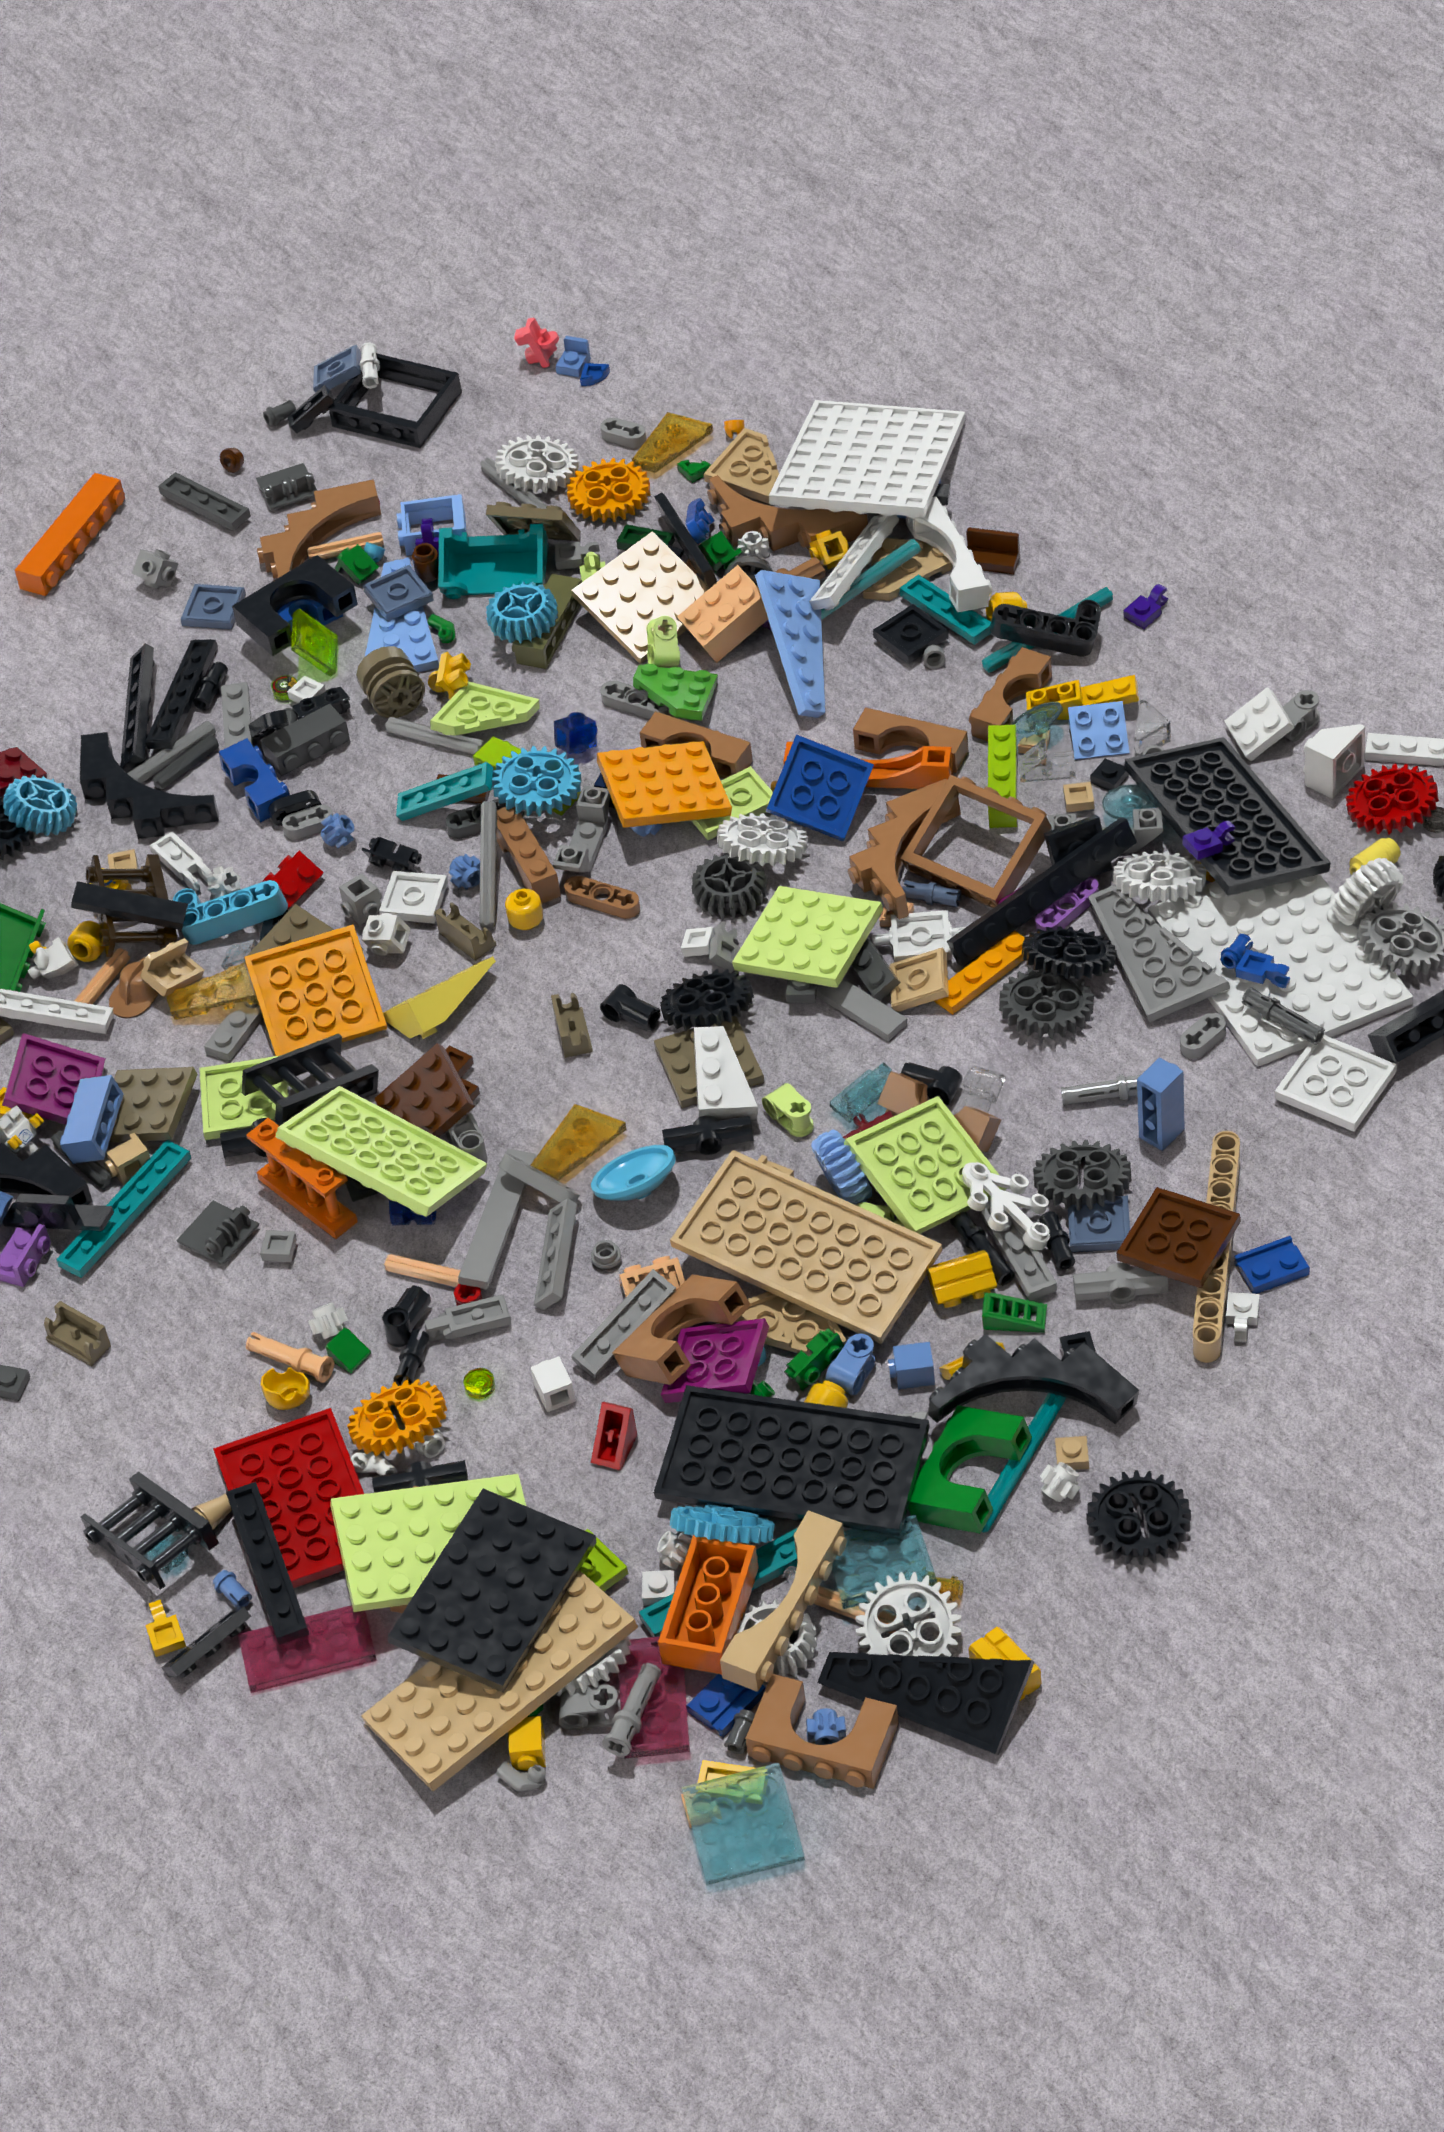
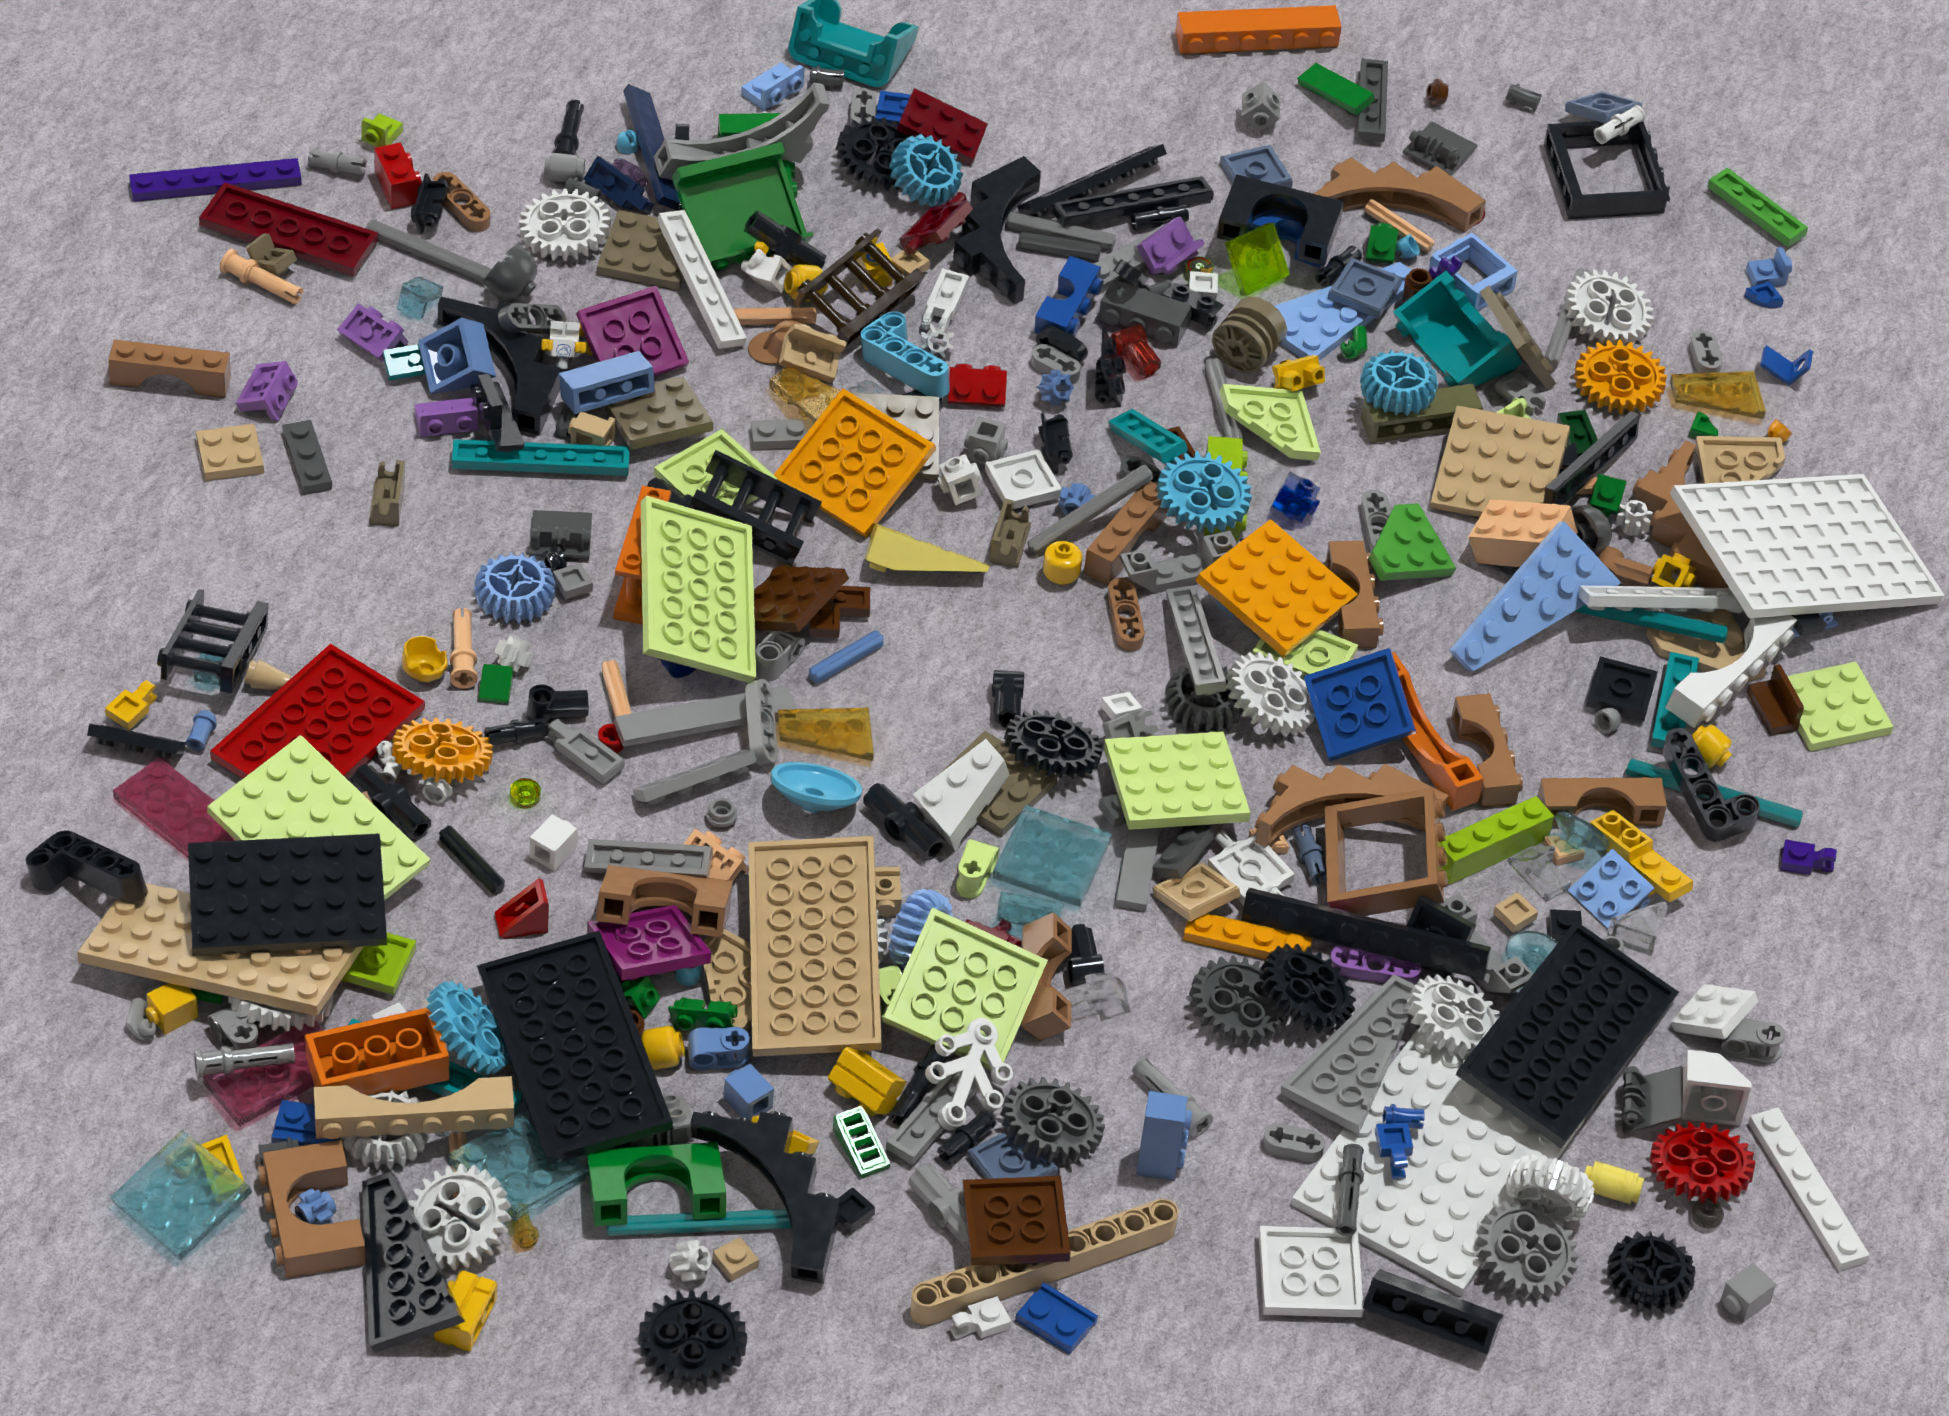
camera: 45 degrees right, 0 degrees up
(40, 928) = (783, 241): none -> black piece
(102, 824) = (936, 224): none -> dark red plate
(129, 905) = (844, 283): black tile -> none
(176, 516) = (1336, 89): none -> green tile
(248, 1249) = (554, 560): none -> black bush
(253, 692) = (1169, 247): none -> medium lavender bracket
(254, 1285) = (514, 588): none -> light blue gear
(267, 1563) = (231, 735): black plate -> none
(304, 416) = (1532, 114): black plate -> none
(330, 762) = (1133, 344): none -> clear red piece
(330, 1733) = (87, 861): none -> black beam
(350, 789) = (1109, 371): none -> black hinge
(361, 609) = (1336, 266): none -> black pin
(496, 335) = (1757, 207): none -> bright green plate
(504, 1097) = (846, 656): none -> medium blue axle
(524, 1452) = (472, 859): none -> black axle
(541, 342) = (1757, 230): coral hips -> none
(571, 1026) = (957, 662): dark tan hinge -> none
(663, 646) = (1449, 510): yellowish green piece -> none
(676, 395) = (1783, 368): none -> blue bracket
(677, 858) = (1196, 640): none -> light grey plate
(698, 521) = (1624, 459): blue plate -> none
(814, 1054) = (1052, 855): none -> clear light blue plate
(1027, 515) = (1838, 707): none -> yellowish green plate
(1207, 843) = (1504, 1025): dark purple plate -> none
(1315, 798) = (1651, 1098): none -> dark grey hinge

